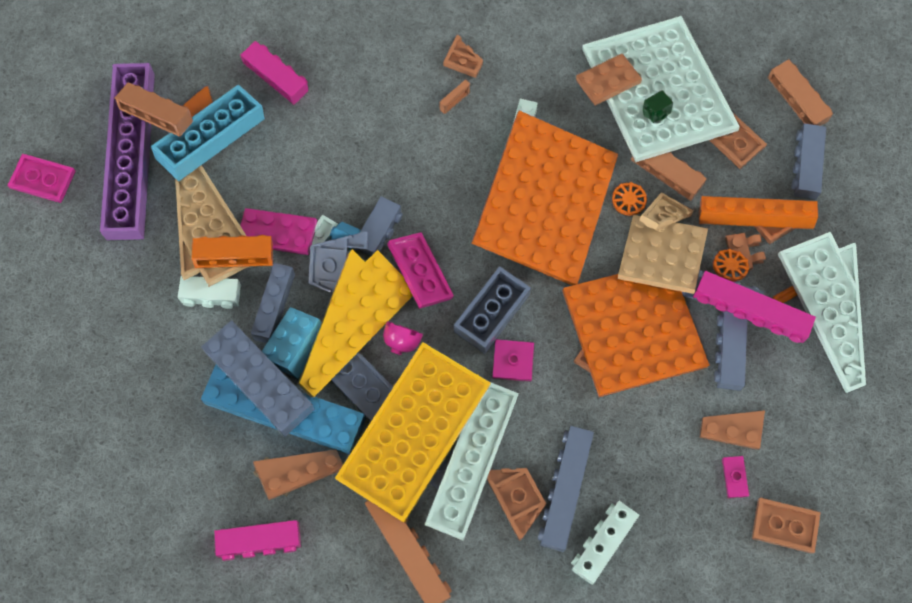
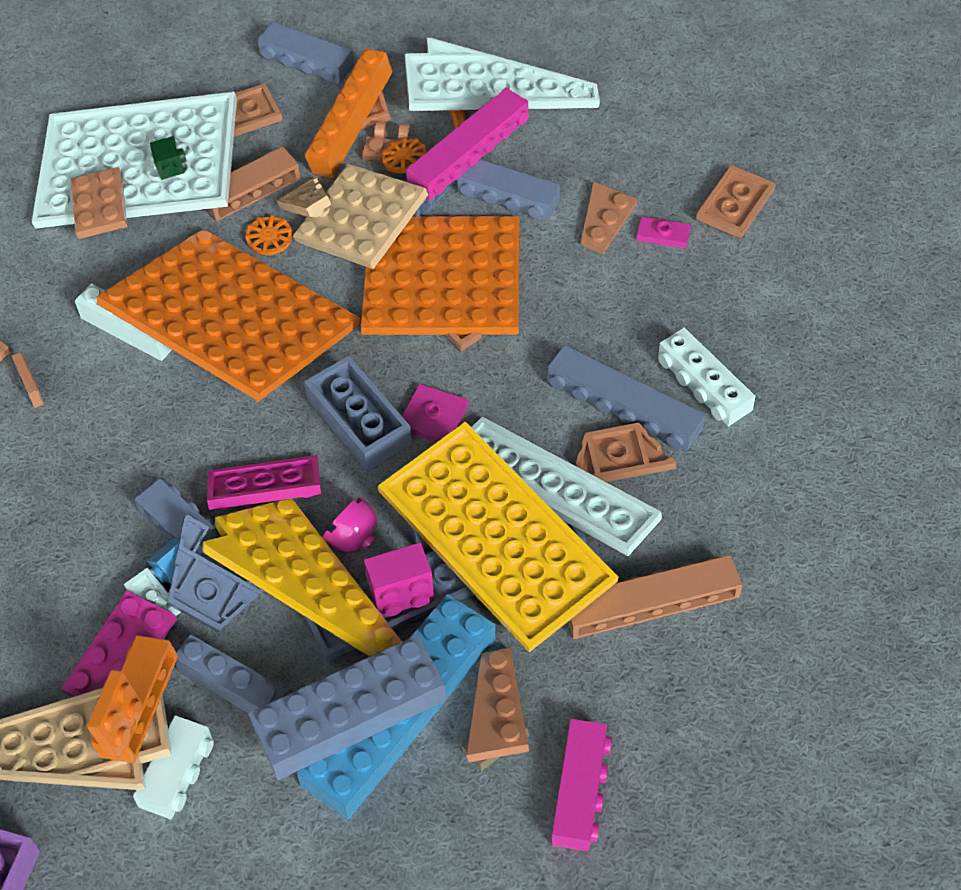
camera: 70 degrees left, 15 degrees down
(200, 244) = (115, 714): none -> orange plate
(292, 342) = (299, 652): medium azure brick -> none
(360, 379) = (400, 580): none -> dark pink brick
(800, 94) = (216, 37): nougat brick -> none

